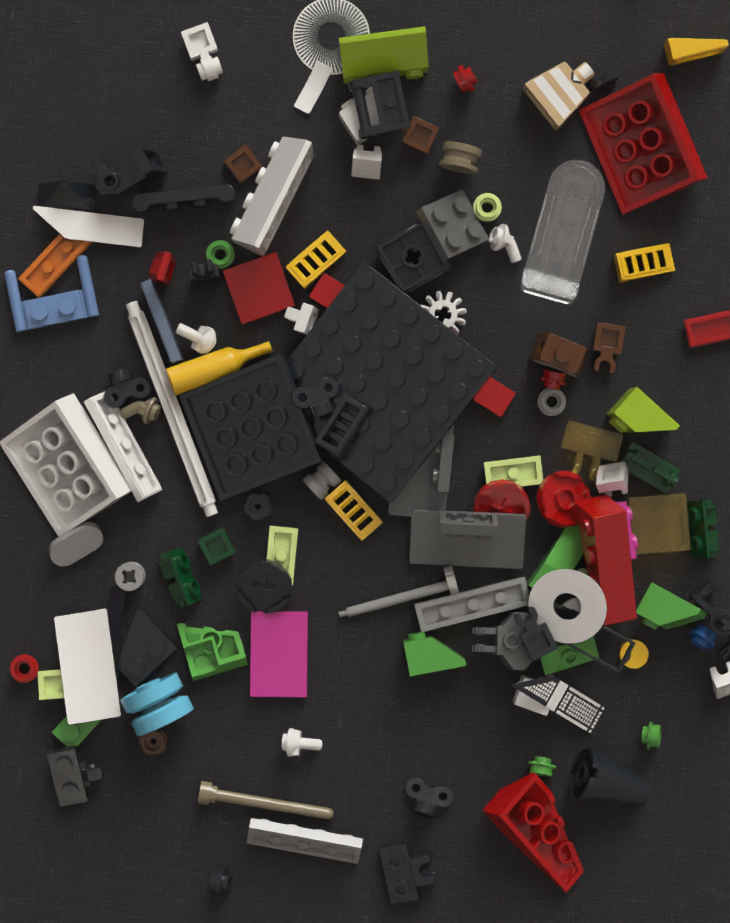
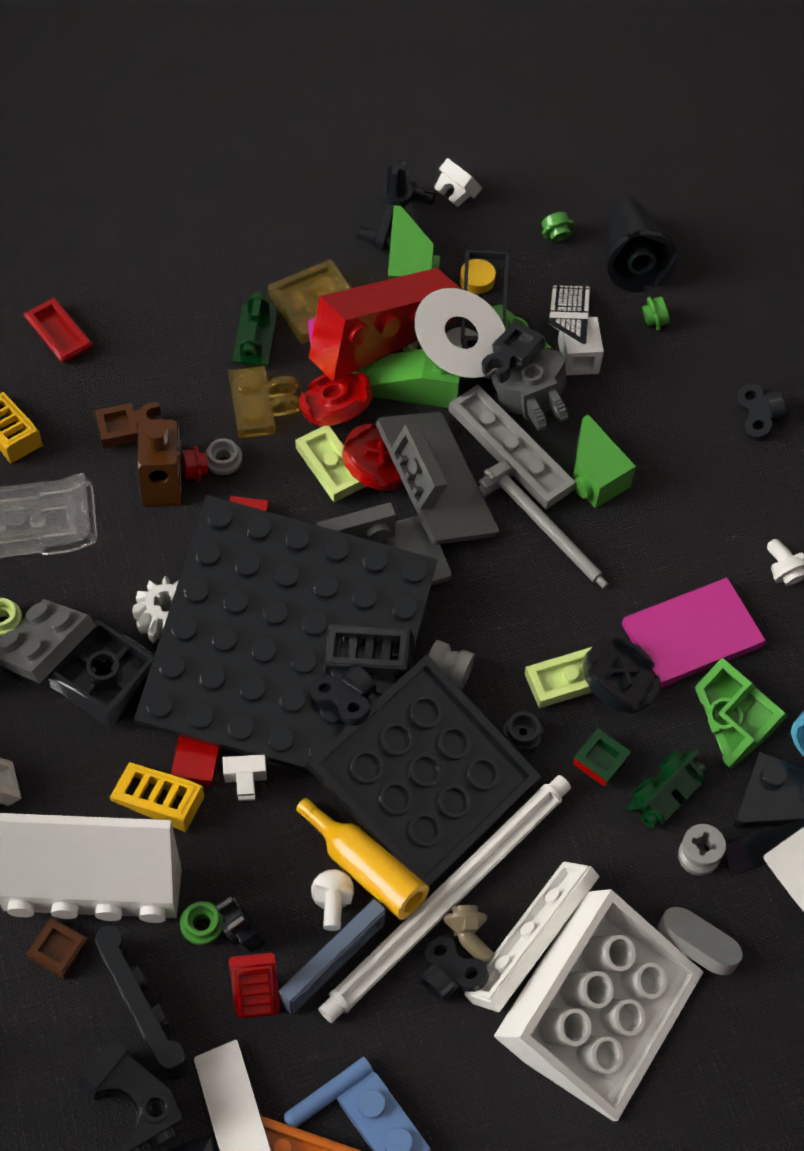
camera: 120 degrees left, 30 degrees down
(259, 288) = (229, 851): red tile -> none
(335, 494) = (459, 642): yellow slope -> none
(501, 238) = (38, 580): white plate -> none
(530, 820) = (725, 297): red wedge -> none
(612, 478) = (285, 357): white tile -> none
(639, 413) = (195, 352): lime slope -> none
(702, 541) = (301, 258): dark green hinge -> none
(702, 637) = (424, 216): blue plate -> none

